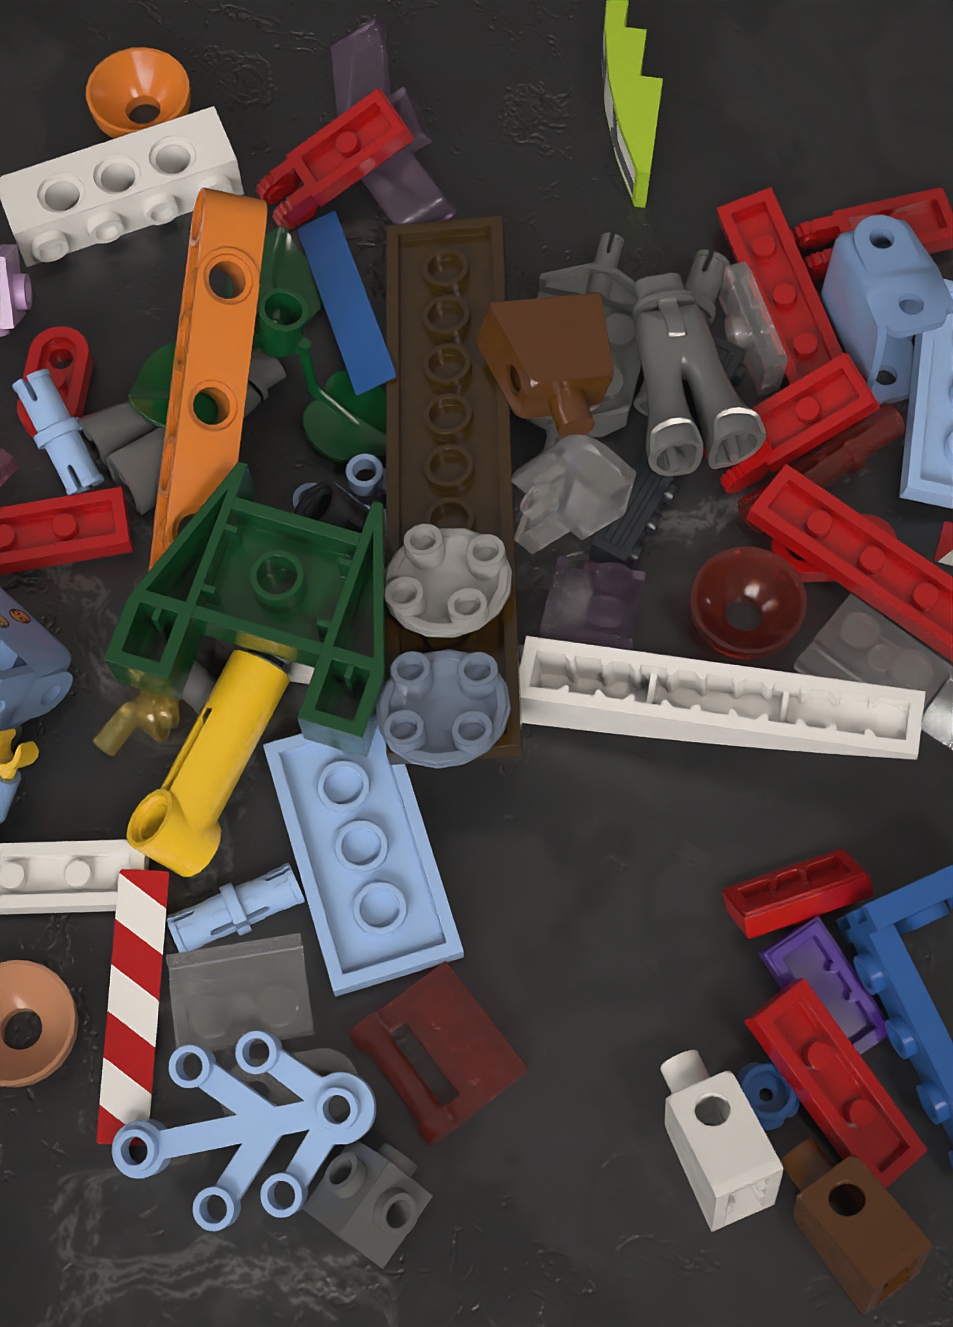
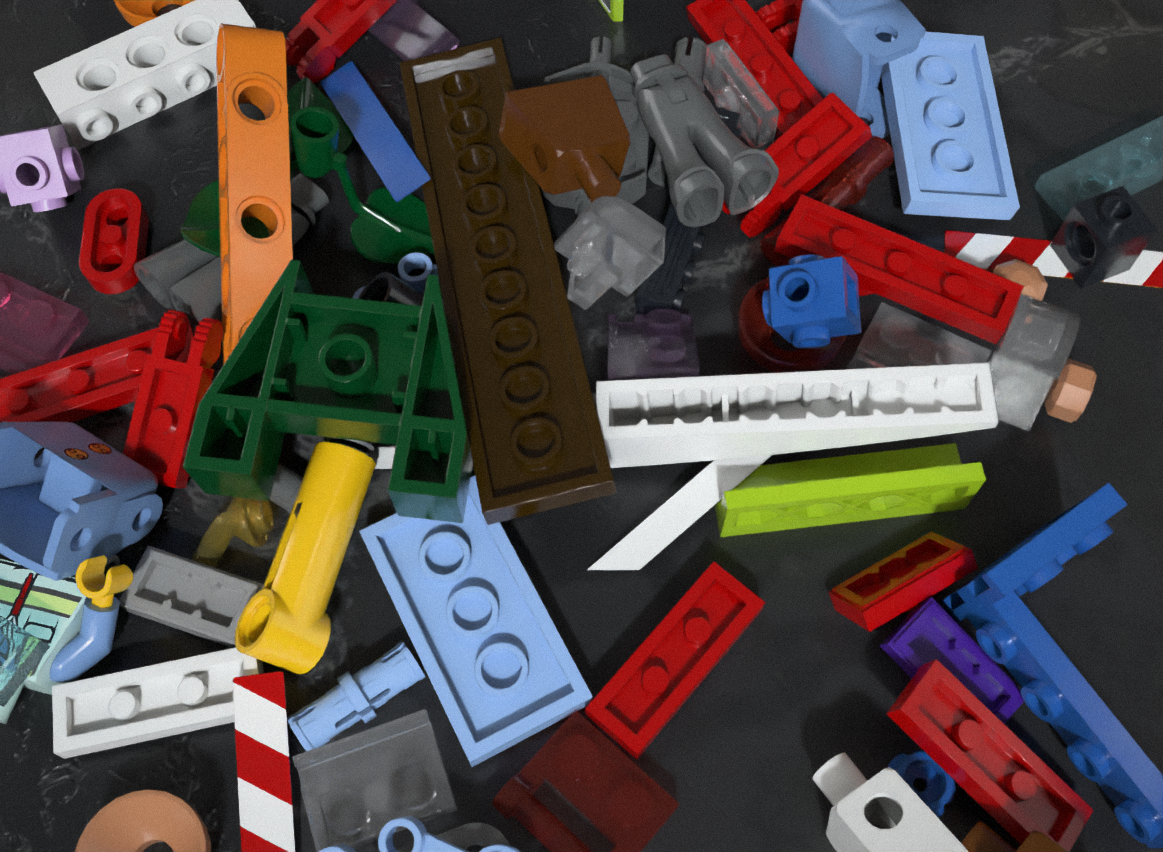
camera: 10 degrees left, 5 degrees down
(58, 432) = (118, 276): light blue pin -> none
(88, 779) = (188, 595): none -> light grey plate
(97, 575) = (171, 395): none -> red hinge
(443, 707) = (530, 457): sand blue dish -> none
(447, 580) = (512, 341): light grey dish -> none
(553, 929) = (674, 659): none -> red plate
(586, 783) = (677, 514): none -> white sticker
(761, 788) = (849, 490): none -> lime fence
(768, 587) = (813, 300): none -> blue brick

